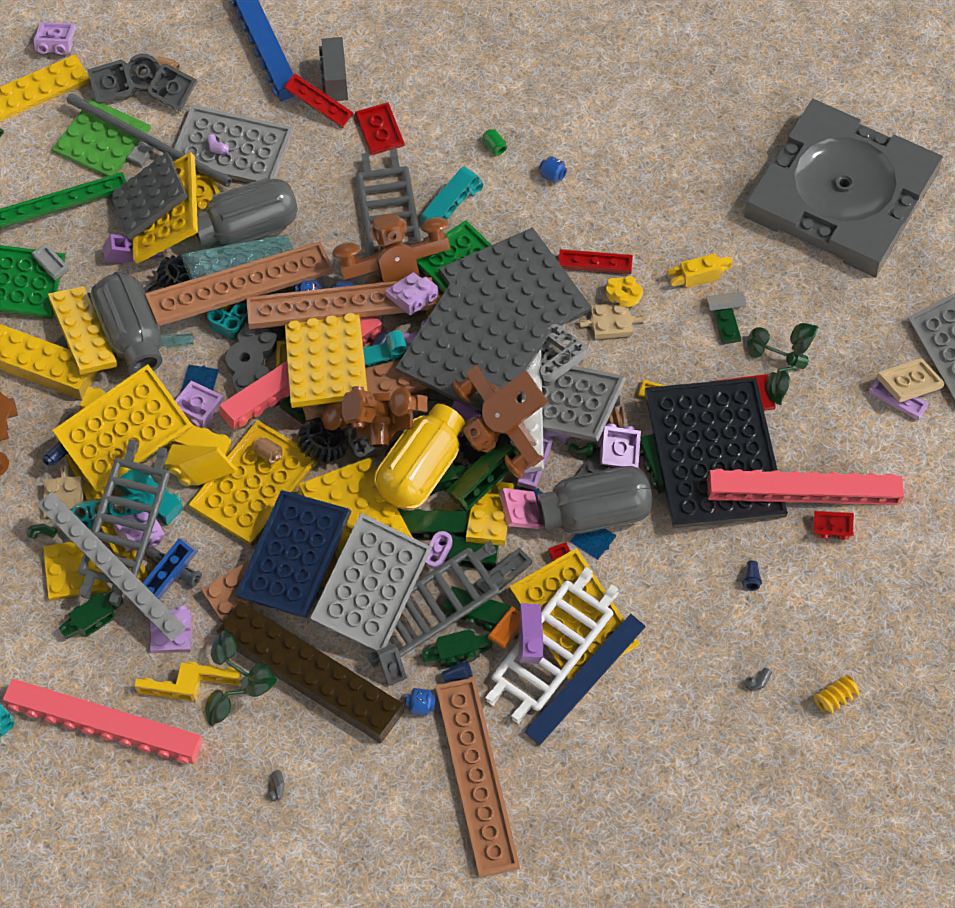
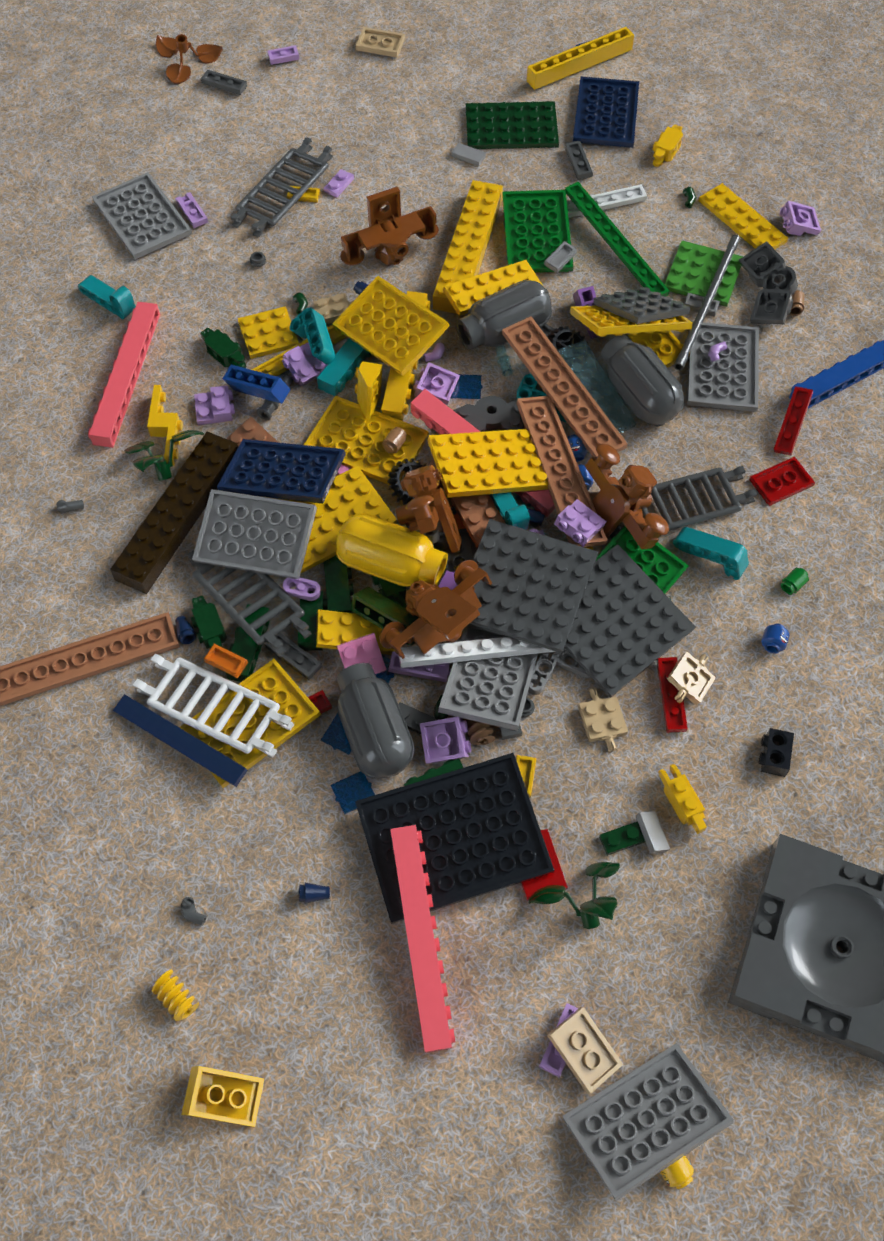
camera: 80 degrees right, 0 degrees up
(111, 566) = (253, 342): light grey plate -> none
(127, 462) = (347, 351): dark grey bar -> none
(333, 68) = (834, 426): dark grey brick -> none
(391, 664) = (184, 570): dark grey plate -> none
(420, 701) = (152, 602): blue head -> none
(530, 633) = (214, 677): medium lavender slope -> none
(573, 352) = (545, 675): light grey beam -> none
(584, 241) = (691, 678): none -> tan plate
(618, 286) = (648, 720): yellow plate -> none
(655, 535) = (350, 790): none -> clear blue piece
(660, 192) = (781, 753): none -> black brick
(833, 523) = (383, 975): red bracket -> none
(926, 662) = (222, 1096): none -> yellow slope

